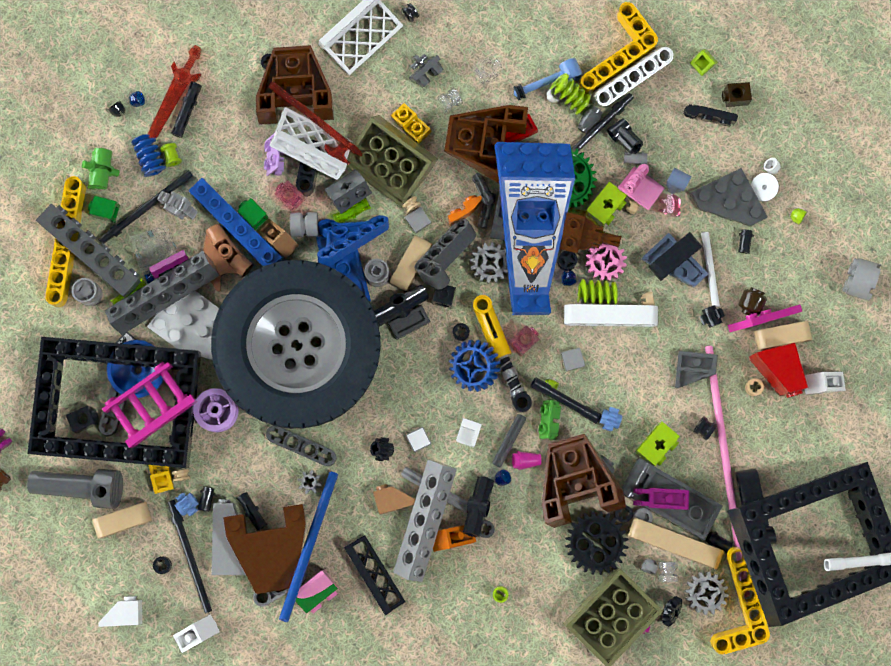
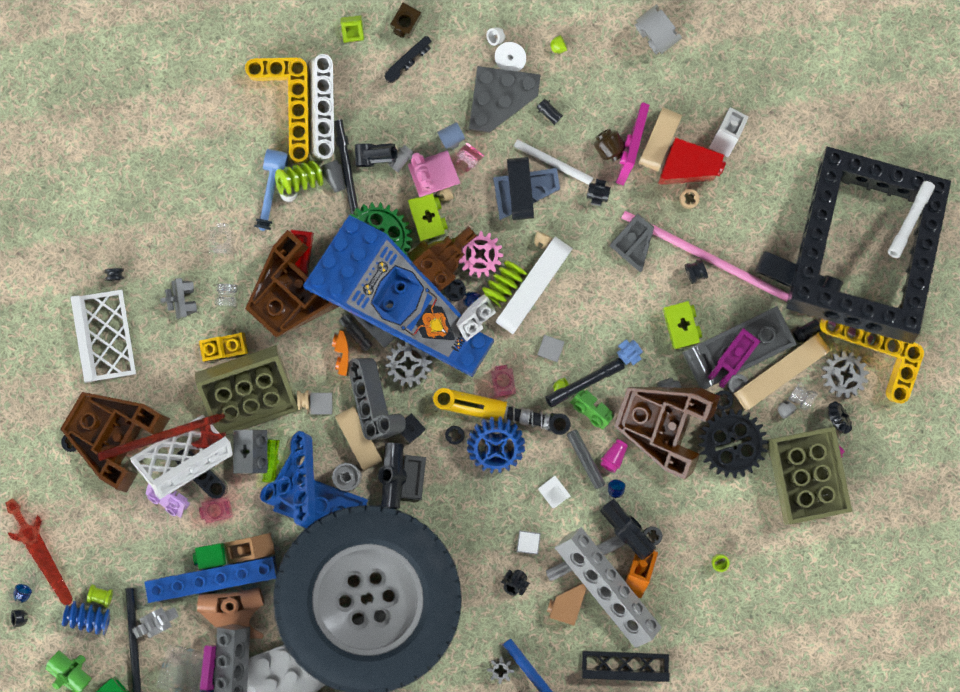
camera: 50 degrees left, 5 degrees up
(189, 102) = (59, 544): black pin -> none
(300, 448) = (463, 658): dark grey beam -> none
(304, 224) = (253, 514): light grey wheel -> none
(483, 189) = (334, 323): dark grey axle -> none
(557, 286) = (474, 316): none -> white slope

